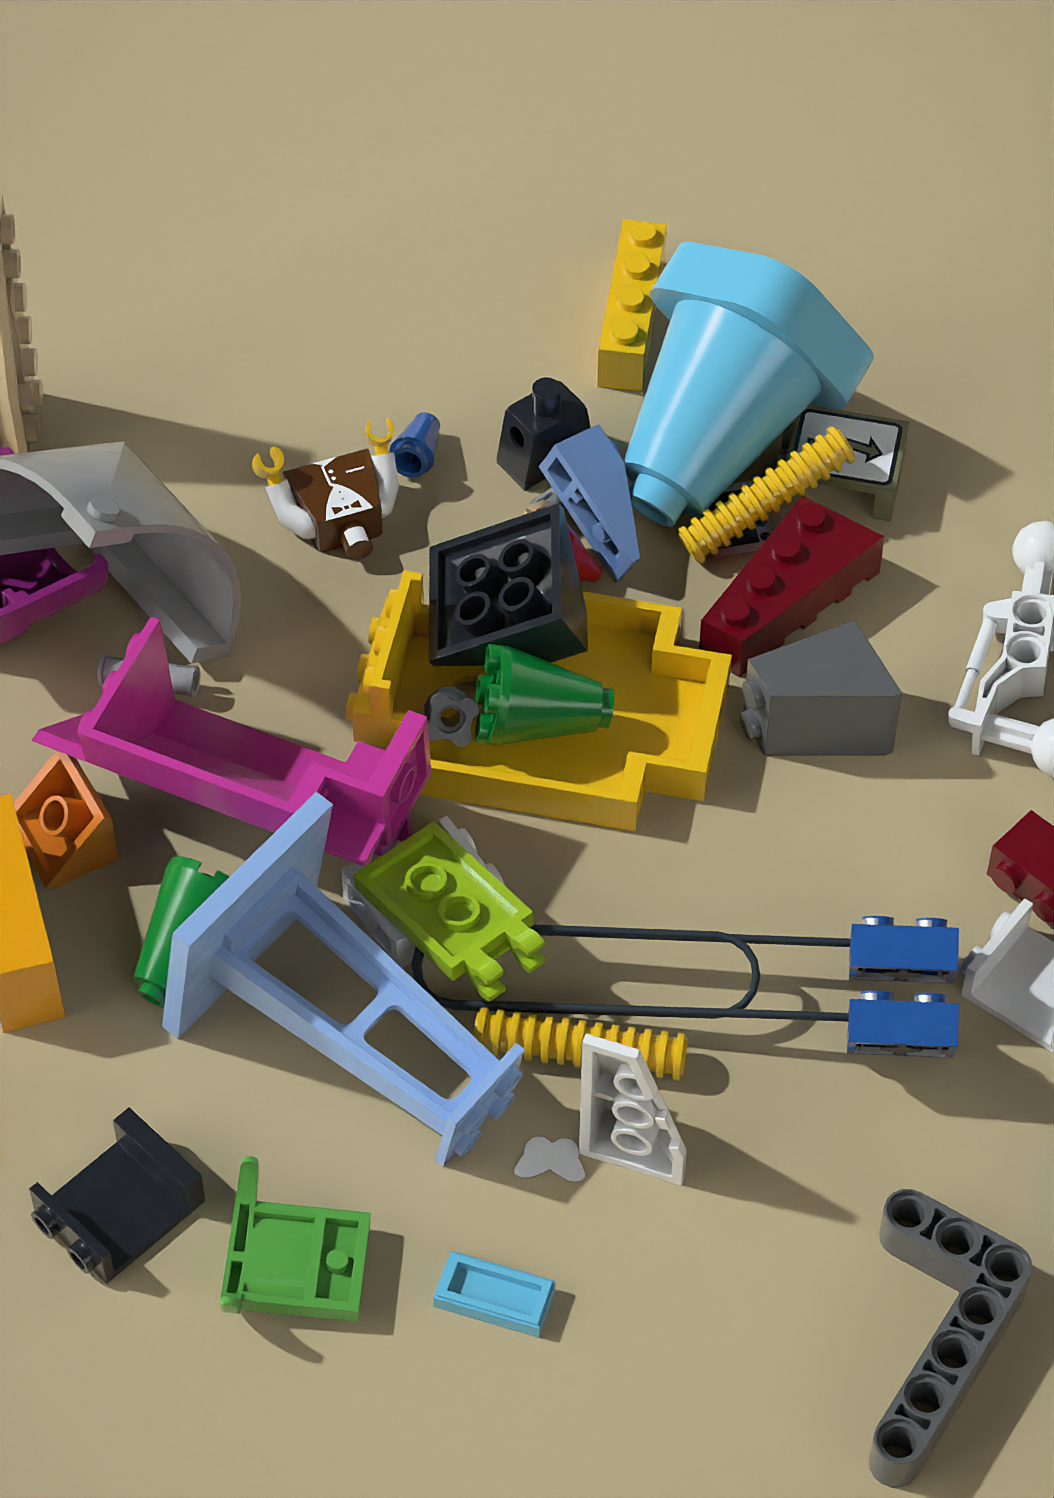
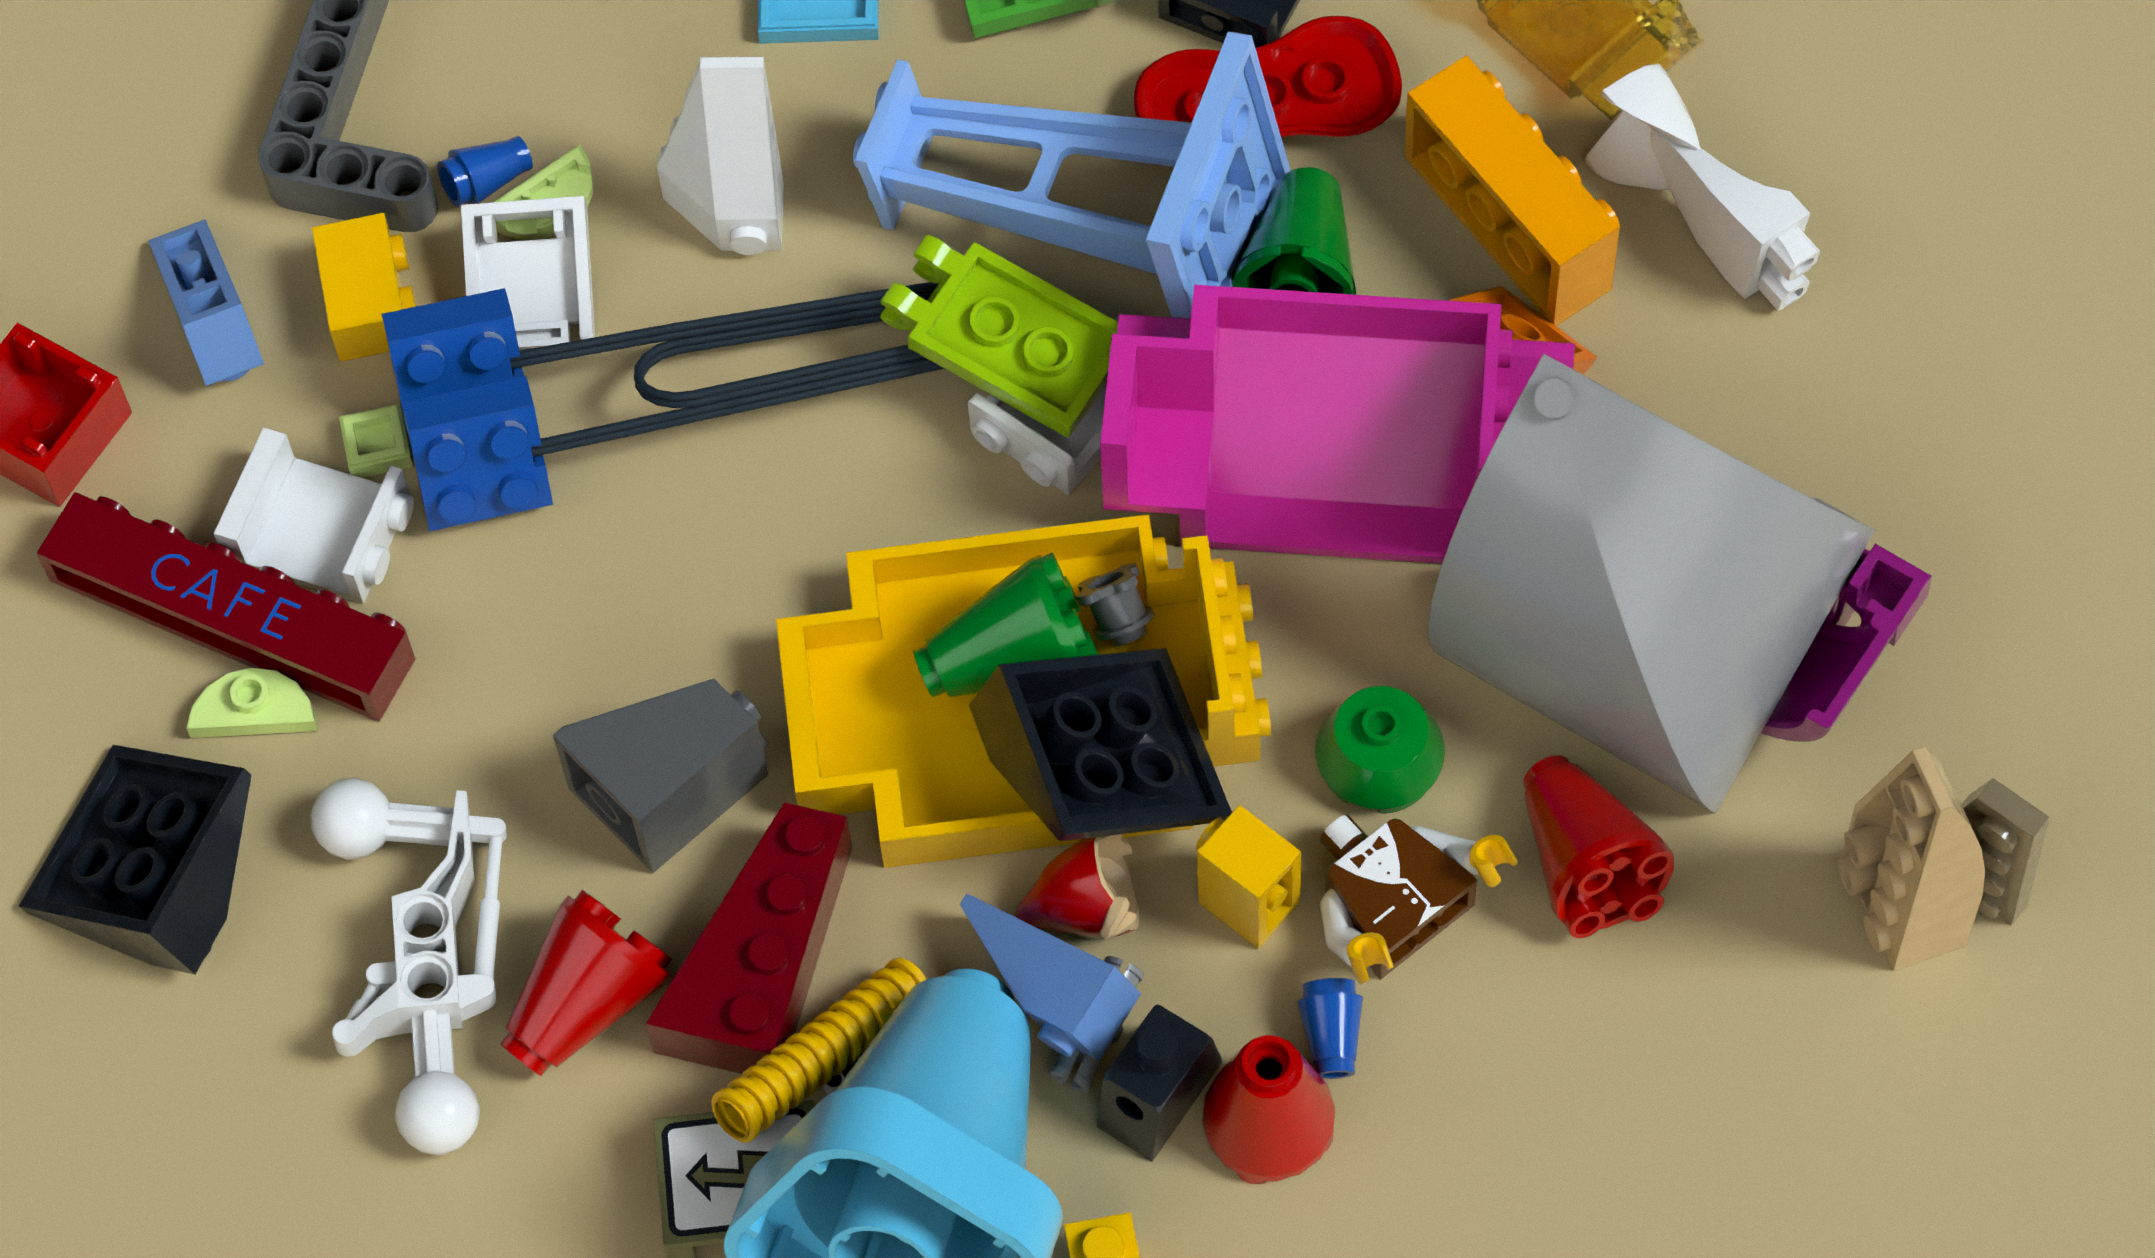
camera: 165 degrees right, 10 degrees up
(194, 1080) = (1321, 79): none -> red plate
(197, 465) = (1593, 850): none -> red cone
(303, 589) = (1380, 749): none -> green cone
(432, 507) = (1247, 875): none -> yellow brick
(477, 392) = (1268, 1112): none -> red cone
(558, 1156) = (821, 171): white sticker -> none
(564, 1040) = (809, 278): yellow piece -> none
(786, 1185) = (563, 178): none -> yellowish green plate
(819, 1119) = (543, 278): none -> white container
(834, 1228) = (481, 170): none -> blue cone
(913, 594) = (580, 984): none -> red cone
(962, 1151) = (361, 282): none -> yellow brick
(982, 1039) = (376, 441): none -> yellowish green tile

